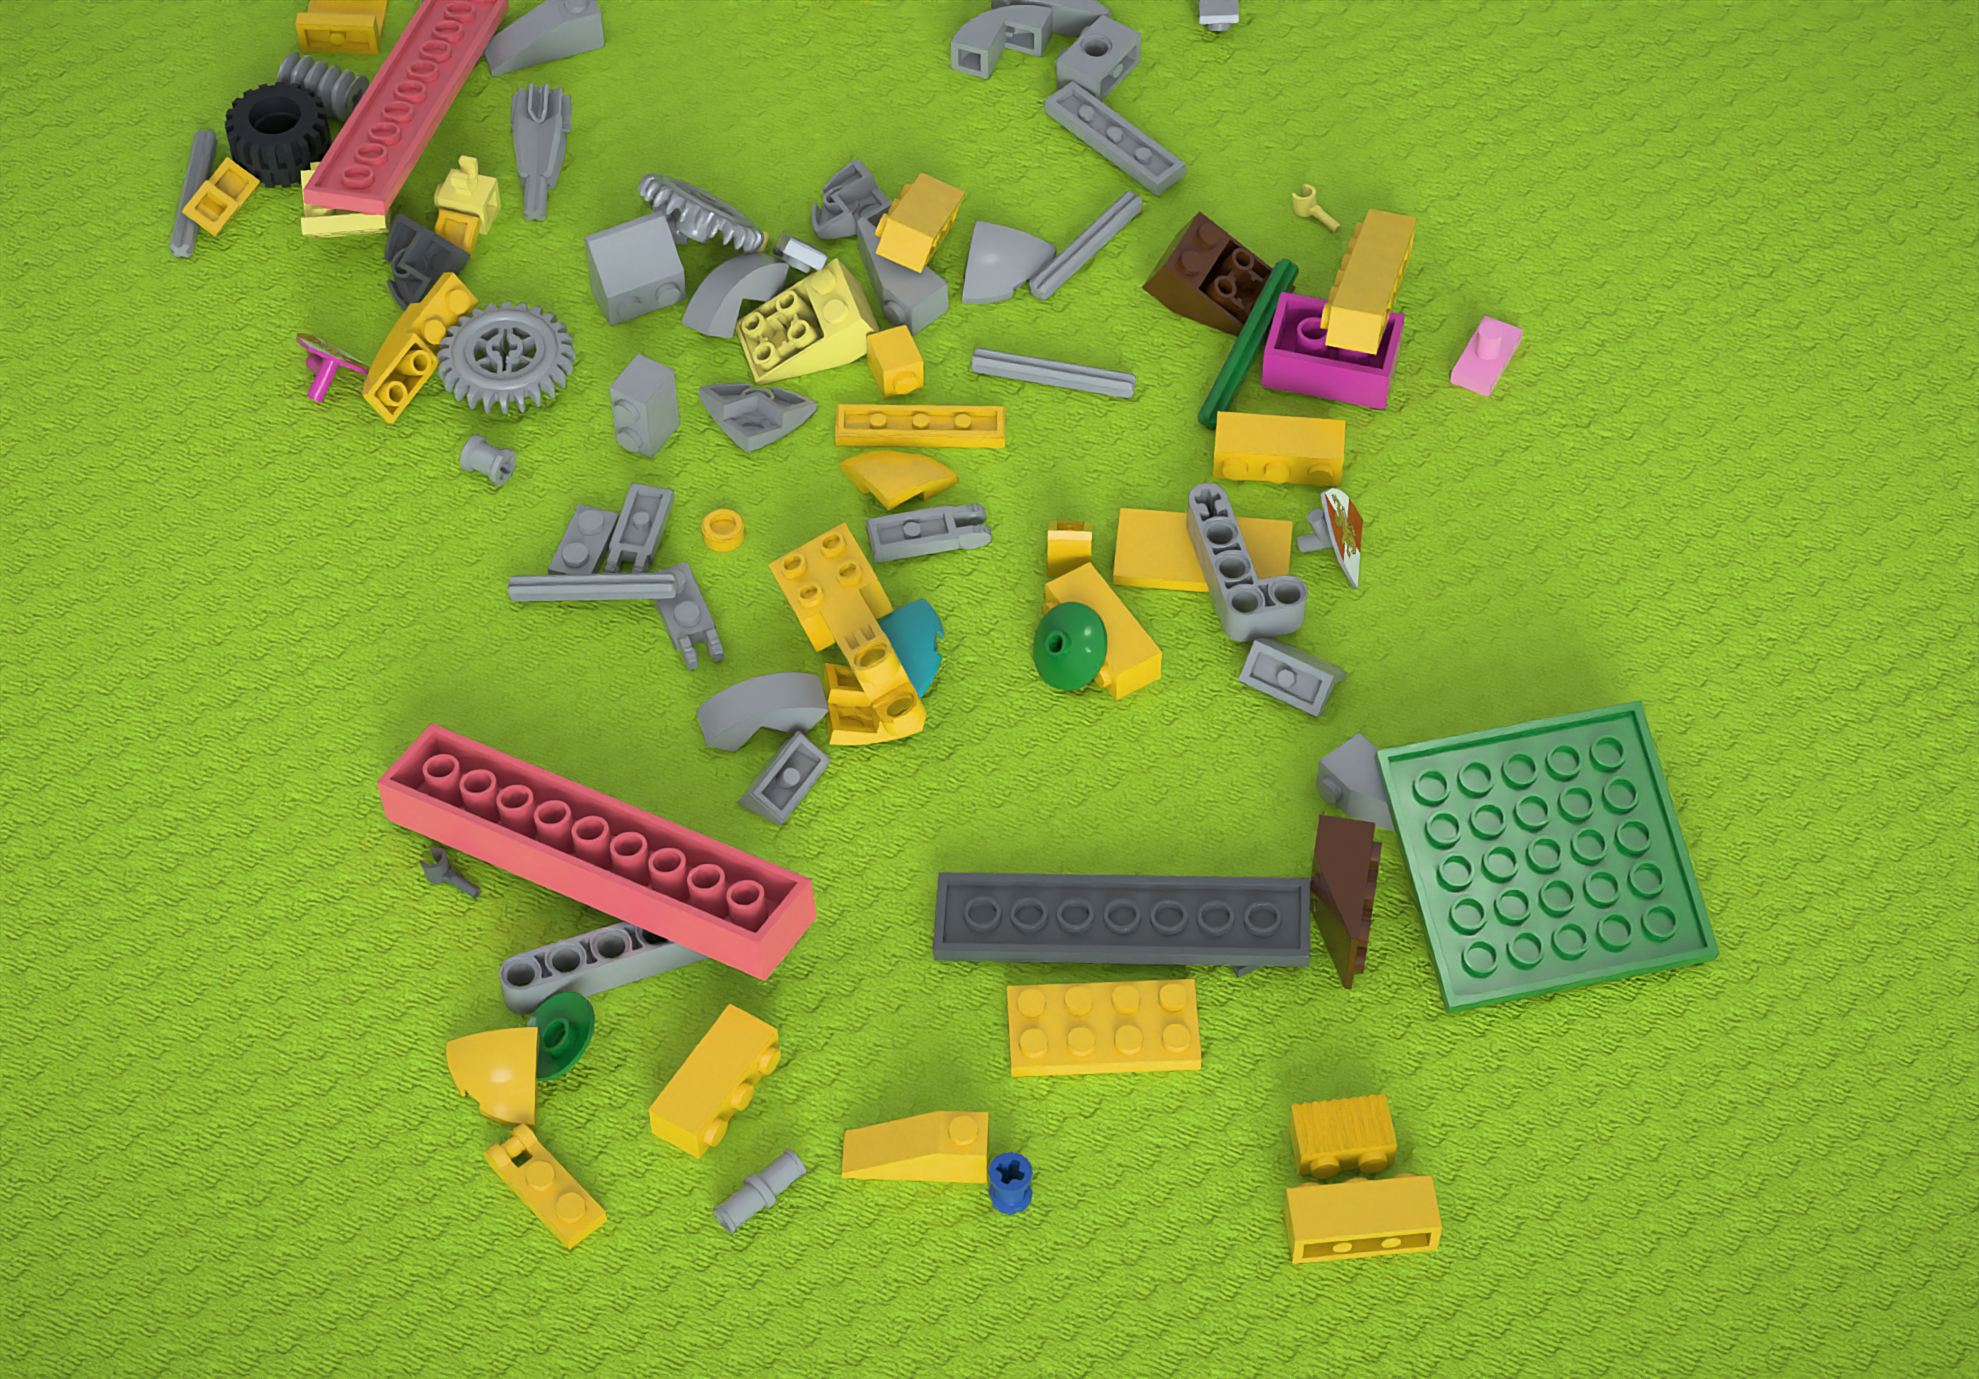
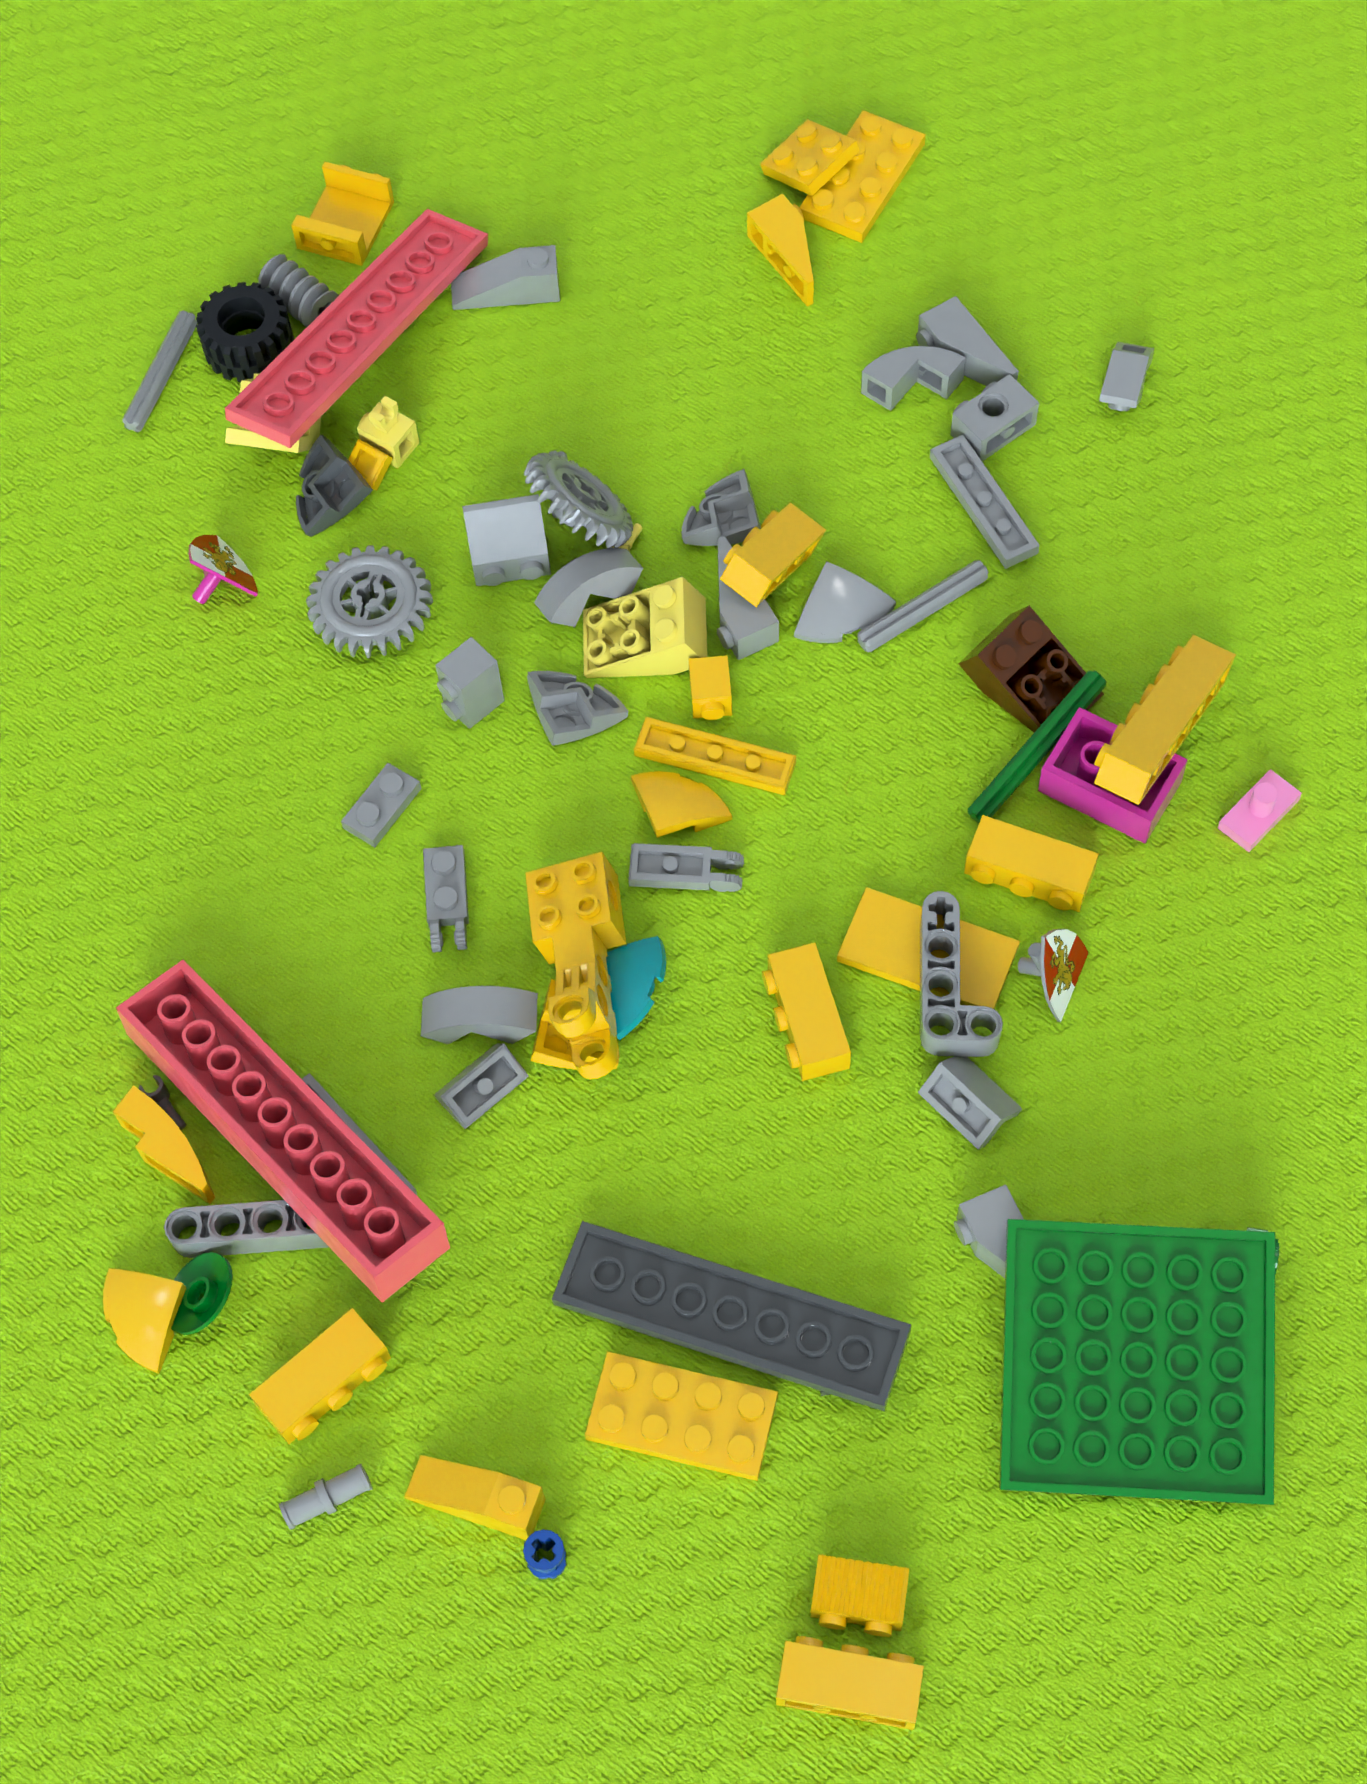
camera: 20 degrees right, 10 degrees up
(221, 197) = (179, 382): yellow slope -> none
(412, 346) = (290, 571): yellow slope -> none
(467, 908) = (162, 1142): none -> yellow slope
(488, 459) = (323, 698): light grey bush -> none
(539, 131) = (466, 392): light grey piece -> none
(546, 1187) = (147, 1437): yellow plate -> none
(593, 586) = (372, 851): light grey axle -> none
(639, 528) = (430, 805): light grey hinge -> none
(723, 530) = (507, 818): yellow tile -> none
(799, 253) = (653, 562): light grey hinge -> none
(1053, 373) = (851, 731): light grey axle -> none
(1068, 546) = (807, 914): yellow slope -> none
(1082, 647) = (772, 1022): green dish -> none
(1307, 206) = (1143, 614): light yellow hand -> none
(1344, 890) = (940, 1329): reddish brown slope -> none

